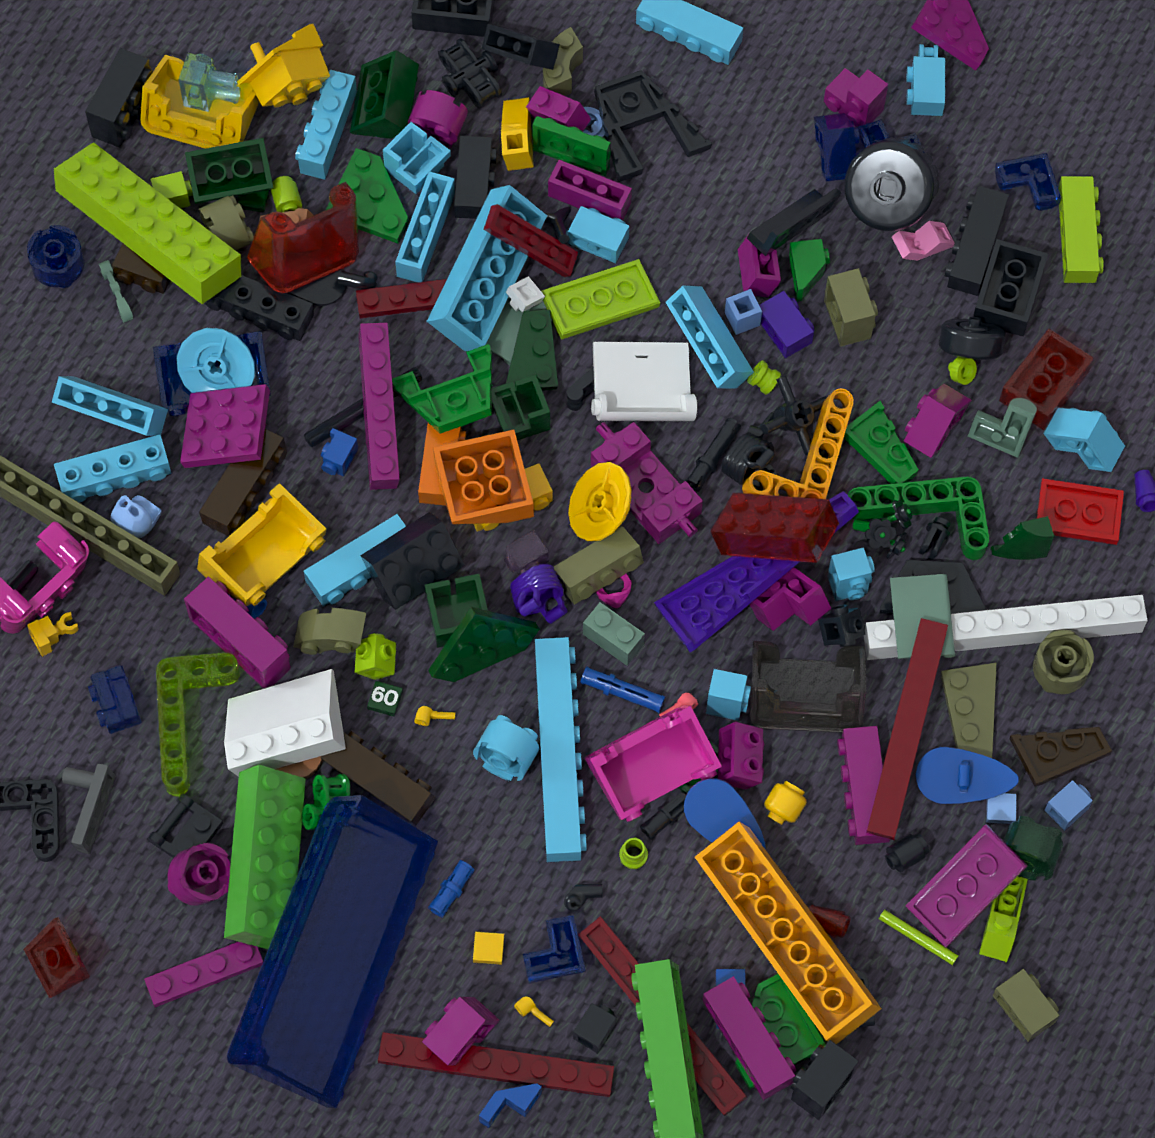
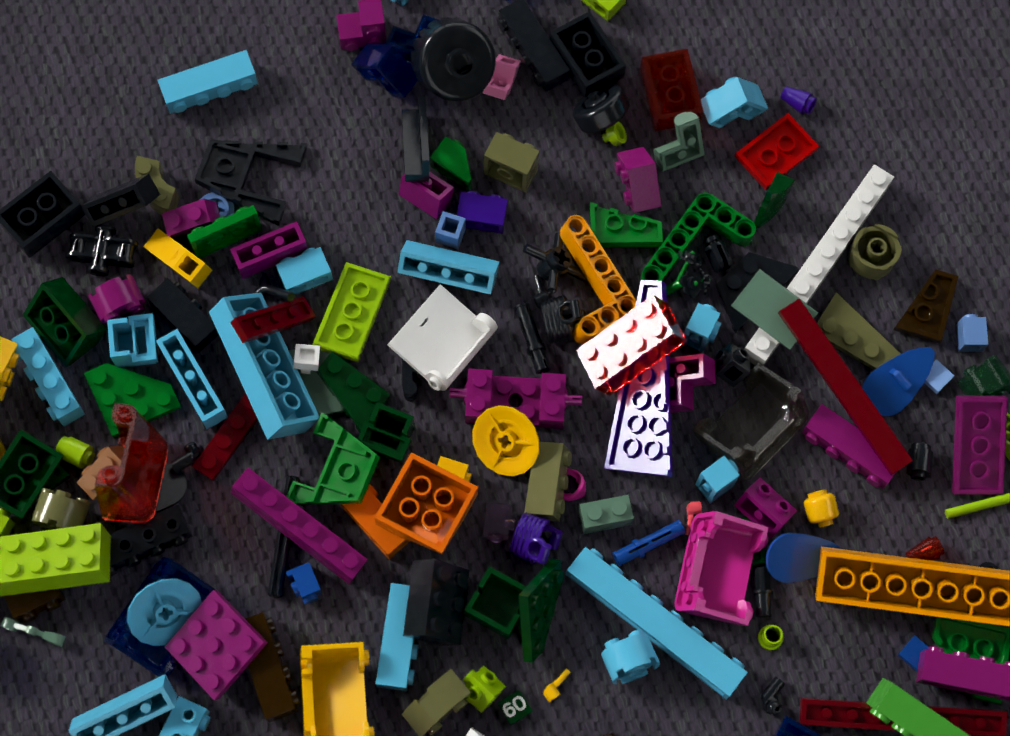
camera: 50 degrees left, 5 degrees up
(764, 377) = (509, 258): lime wheel -> none

